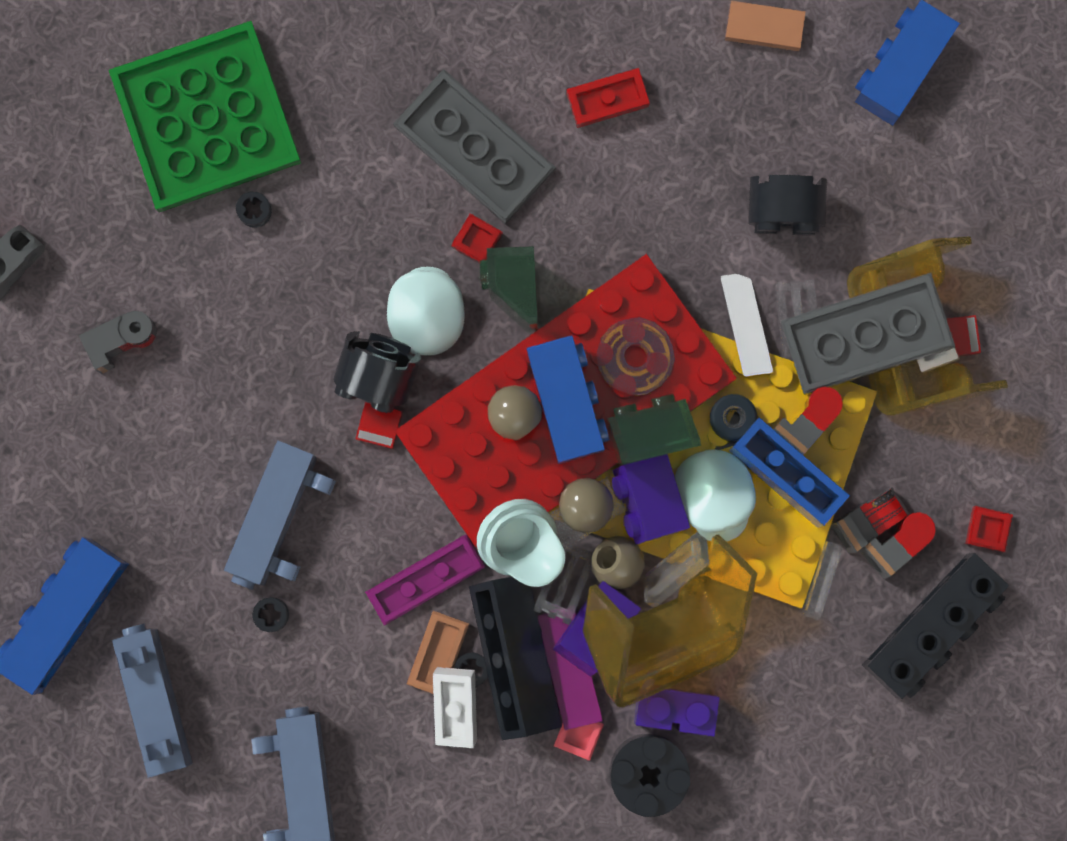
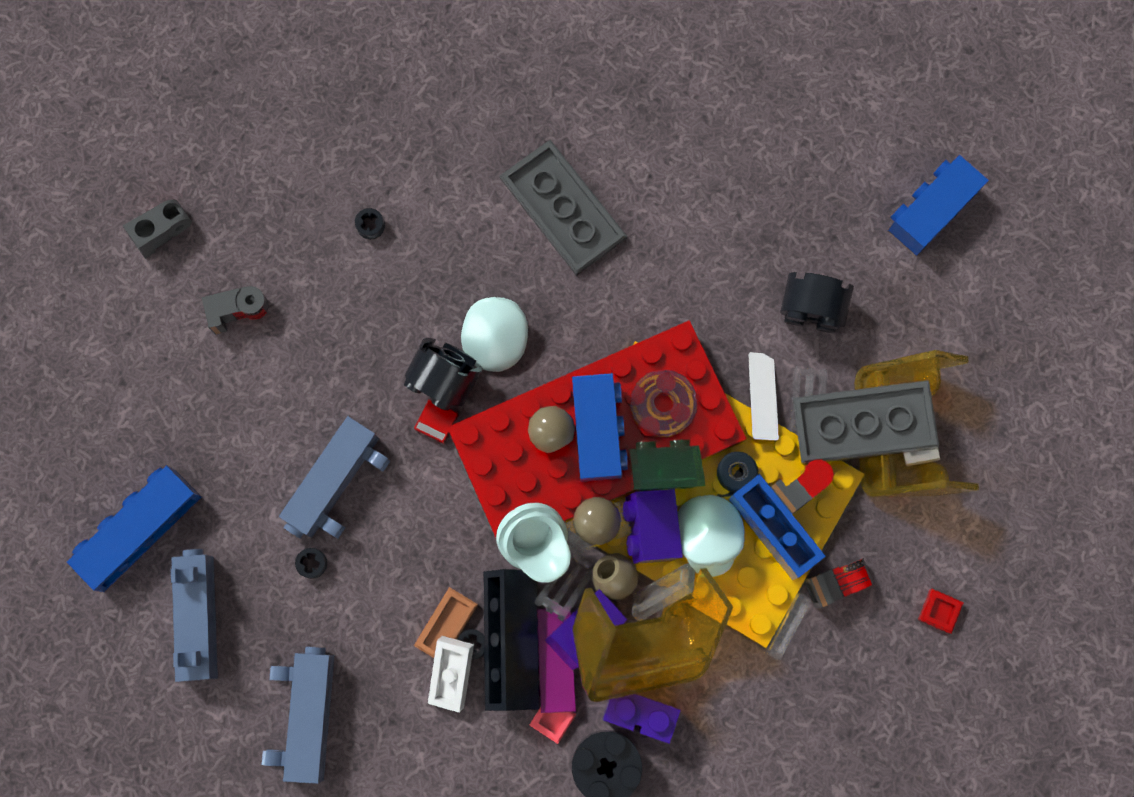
camera: 10 degrees right, 5 degrees down
(204, 116) = (345, 141): green plate -> none
(425, 579) = (448, 559): magenta tile -> none
(475, 238) = (549, 283): red tile -> none
(511, 283) = (571, 322): clear green slope -> none
(607, 98) = (681, 187): red plate -> none
(765, 26) = (824, 154): nougat tile -> none
(910, 537) = (872, 604): leg -> none
(936, 626) = (880, 686): black brick -> none
(965, 335) = (949, 441): red tile -> none

